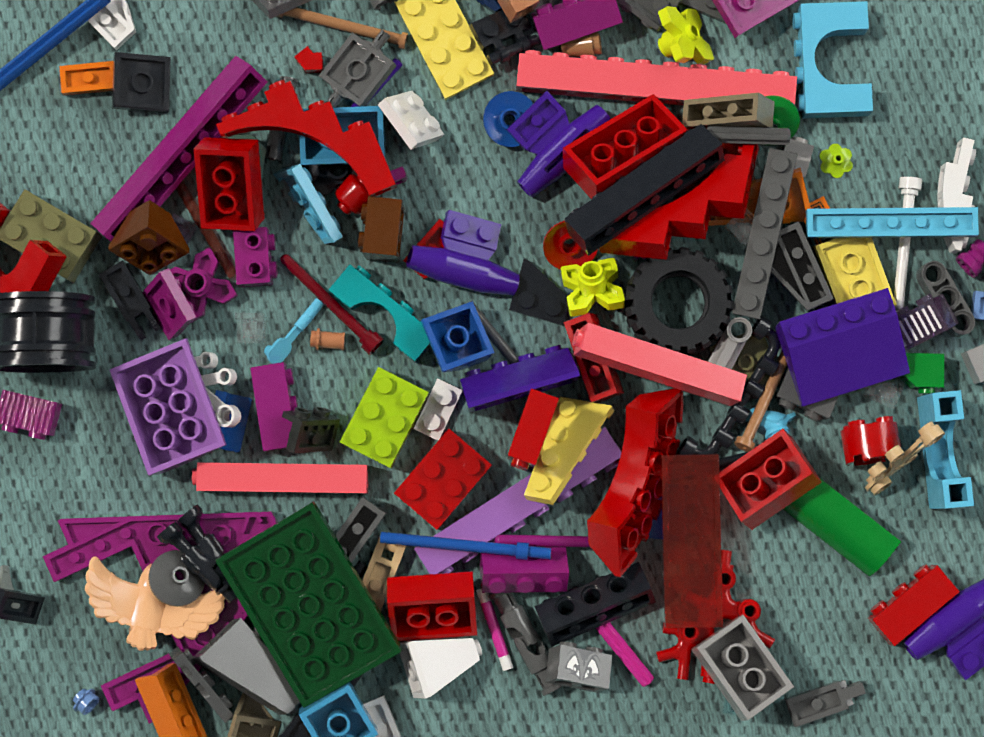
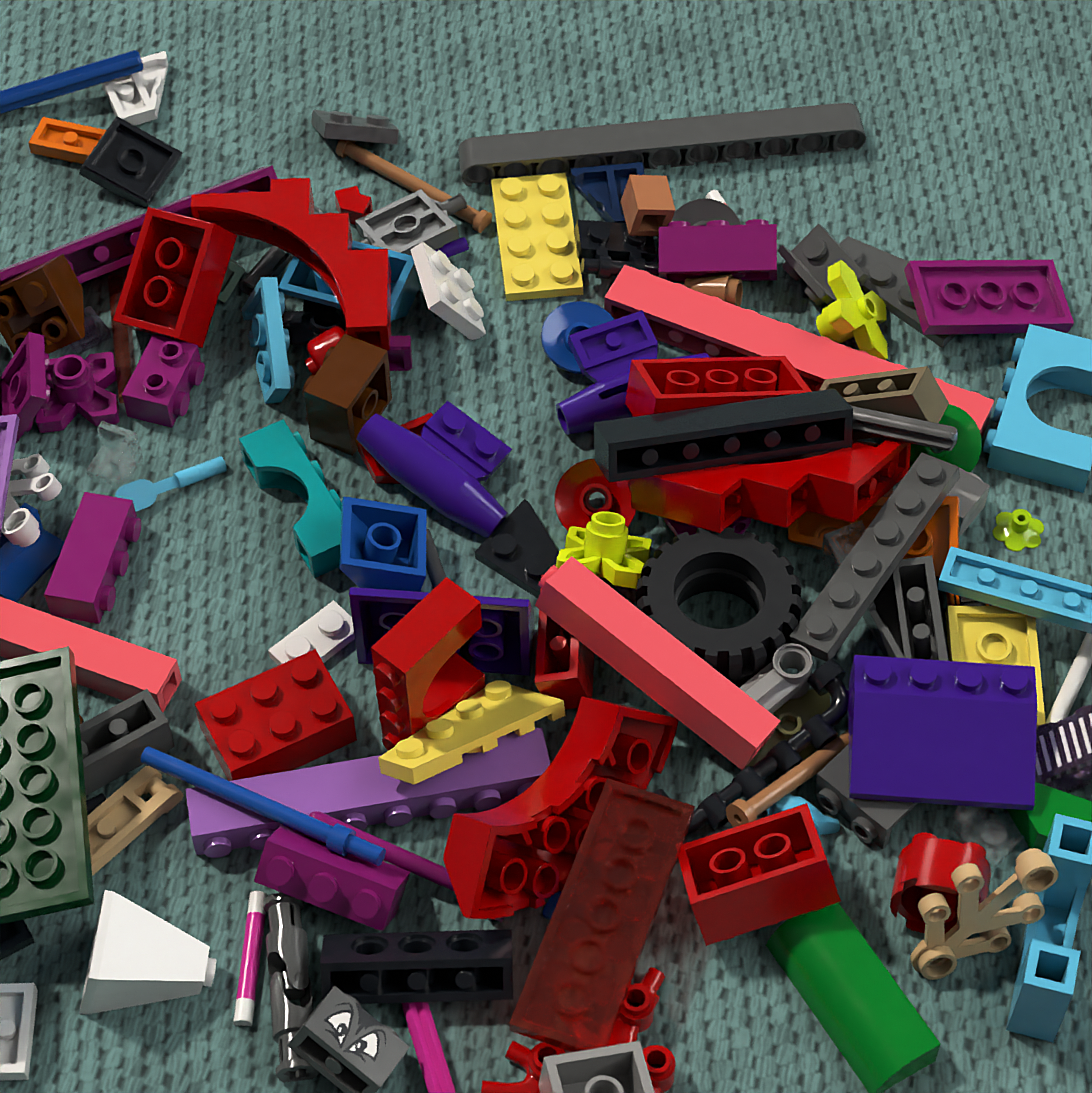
camera: 20 degrees right, 30 degrees down
(311, 430) = (123, 593): pearl dark grey bracket -> none
(328, 340) = (199, 503): nougat pin -> none
(369, 339) = (262, 521): dark red piece -> none
(384, 417) = (233, 618): lime brick -> none
(432, 606) = (173, 870): red brick -> none

